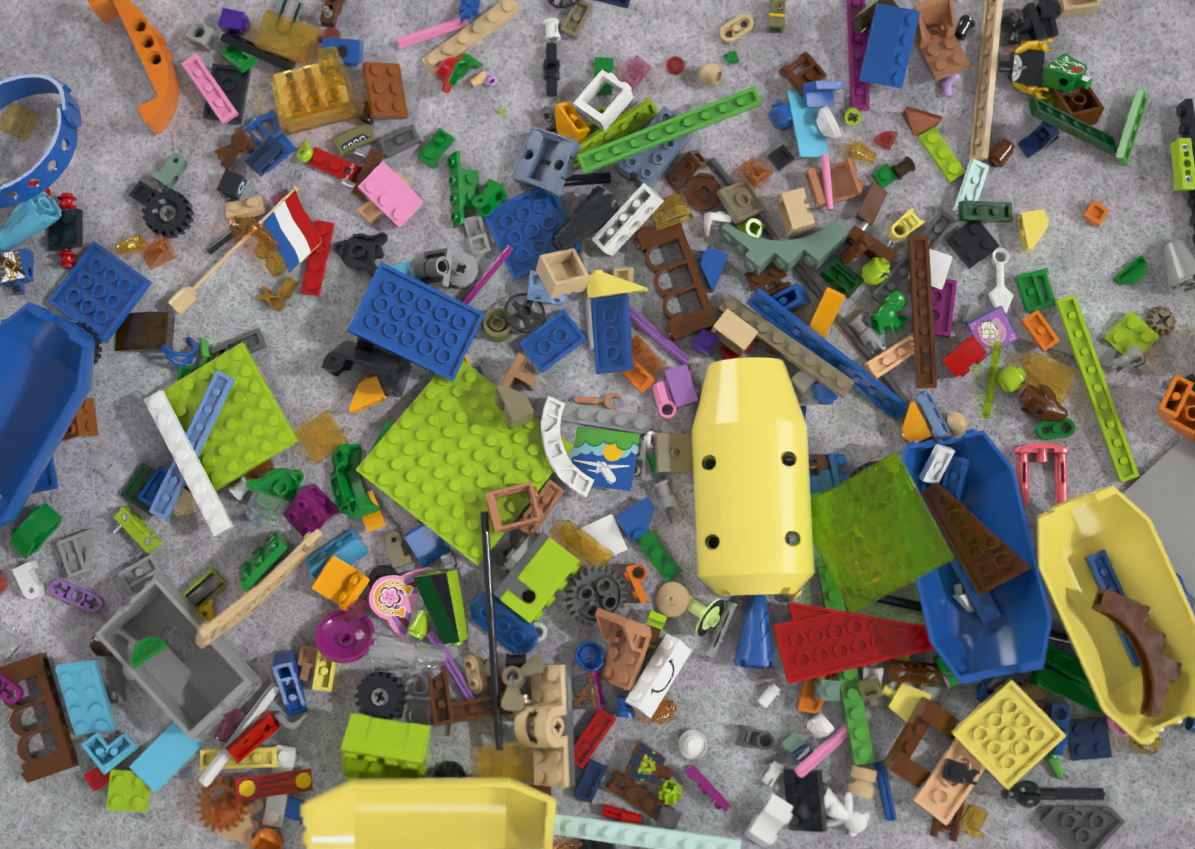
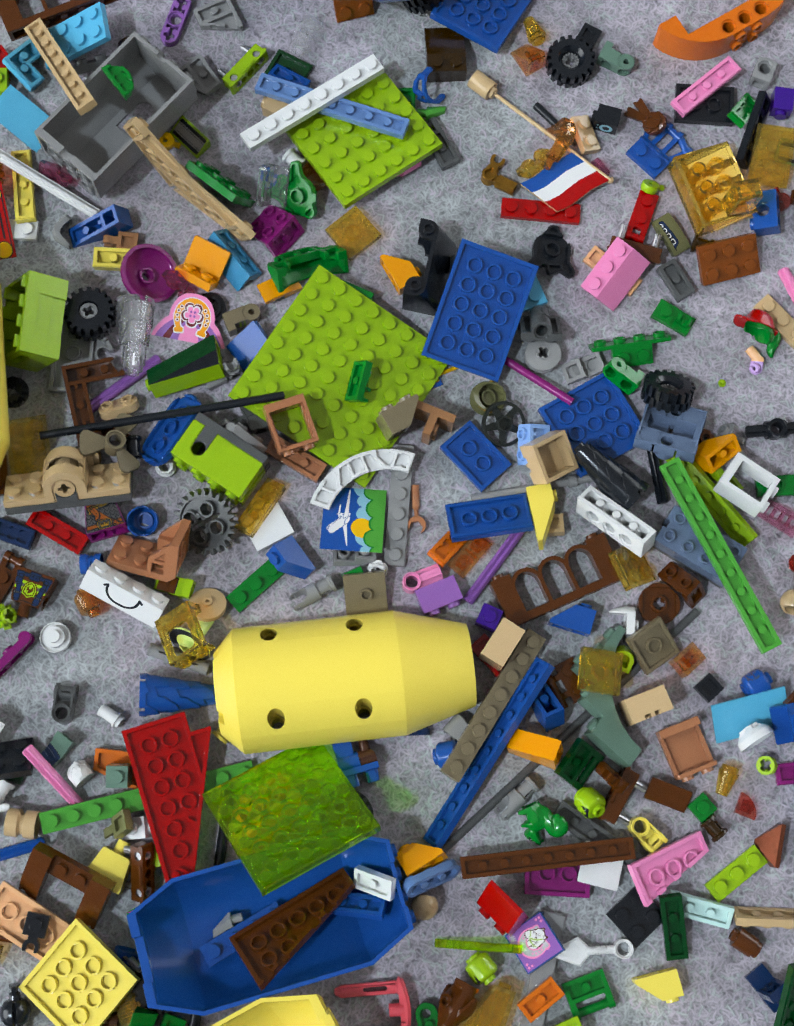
camera: 80 degrees right, 5 degrees down
(123, 711) = (60, 67): none -> tan plate
(252, 737) = (43, 195): red plate -> none
(265, 155) = (641, 147): dark blue panel -> none
(419, 625) = (164, 346): lime cone -> none
(475, 441) = (358, 380): none -> green plate
(509, 159) = (668, 391): none -> black bush
(638, 592) = (214, 567): orange plate -> none
(685, 622) = (183, 613): none -> clear yellow window
(764, 248) = (600, 671): none -> clear yellow plate
(773, 773) = (28, 726): white pin -> none
(827, 182) = (690, 740): bright pink bar -> none
(891, 357) = (492, 826): light nougat tile -> none
(933, 211) = (661, 868): none -> bright pink wing

